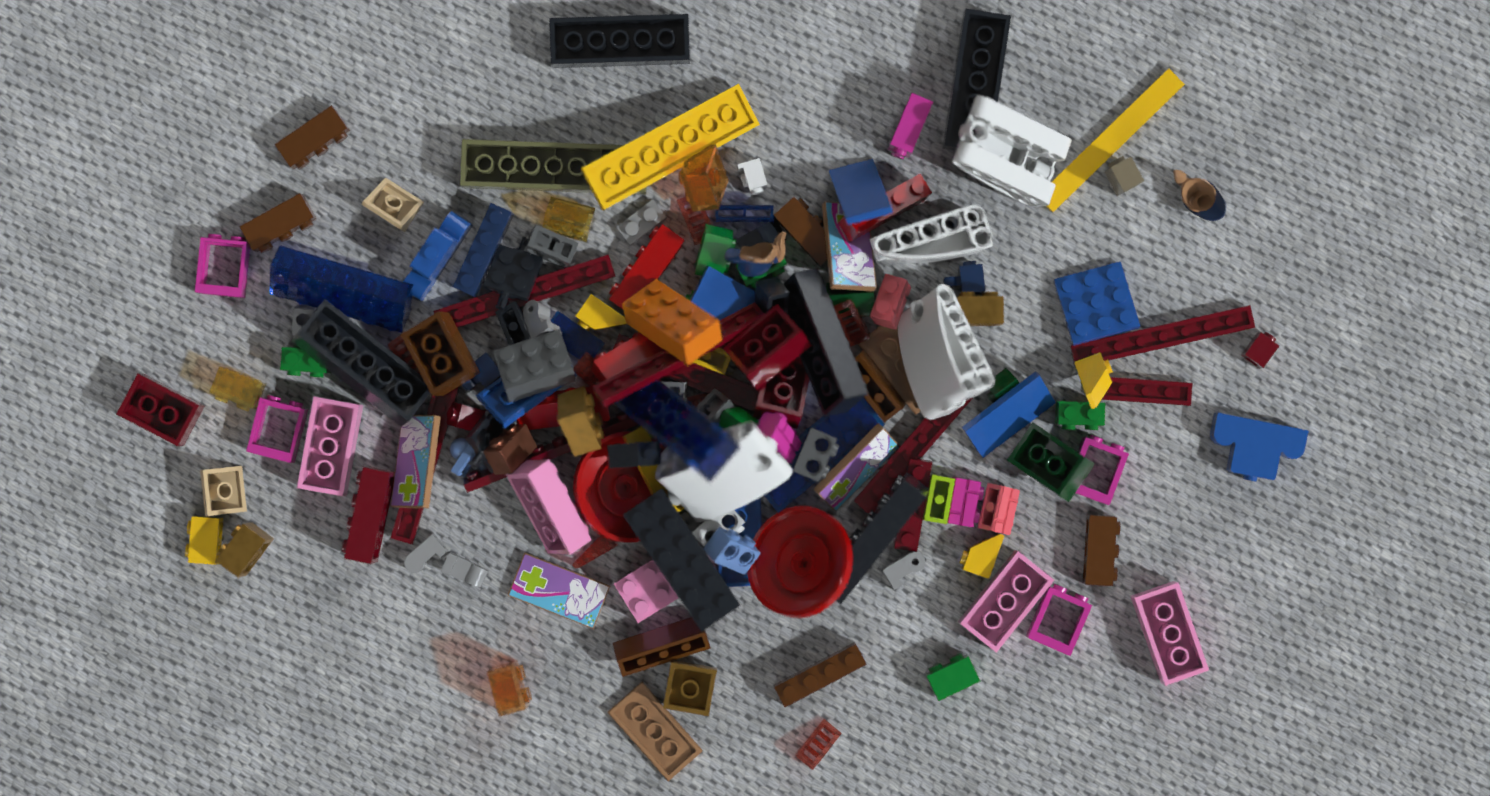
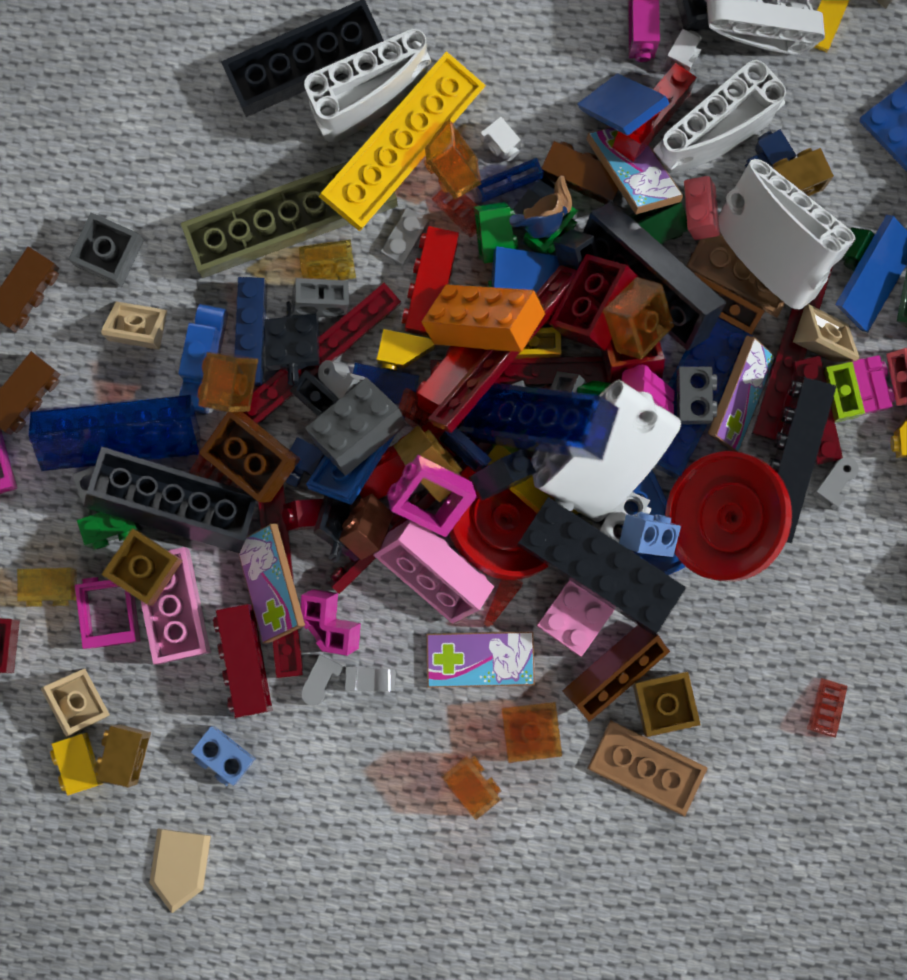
camera: 15 degrees left, 5 degrees down
(254, 653) = (179, 866): none -> tan tile
(318, 409) = (142, 567): none -> pearl gold brick
(328, 578) = (226, 749): none -> medium blue brick
(393, 134) = (106, 249): none -> dark grey brick
(446, 288) = (227, 382): none -> clear orange brick
(448, 521) = (332, 634): none -> dark pink brick
(464, 454) = (316, 553): medium blue tile -> none
(574, 665) = (531, 732): none -> clear orange brick
(586, 464) = (452, 509): none -> dark pink window
(614, 423) = (465, 449): none -> dark blue tile
(653, 97) = (370, 93): none -> white panel
(793, 376) = (638, 318): none -> clear orange brick
(819, 674) = (798, 631): reddish brown brick -> none
(858, 336) = (686, 255): clear red slope -> none
(934, 164) = (685, 50): none -> white brick
(946, 447) = (825, 336): none -> tan slope

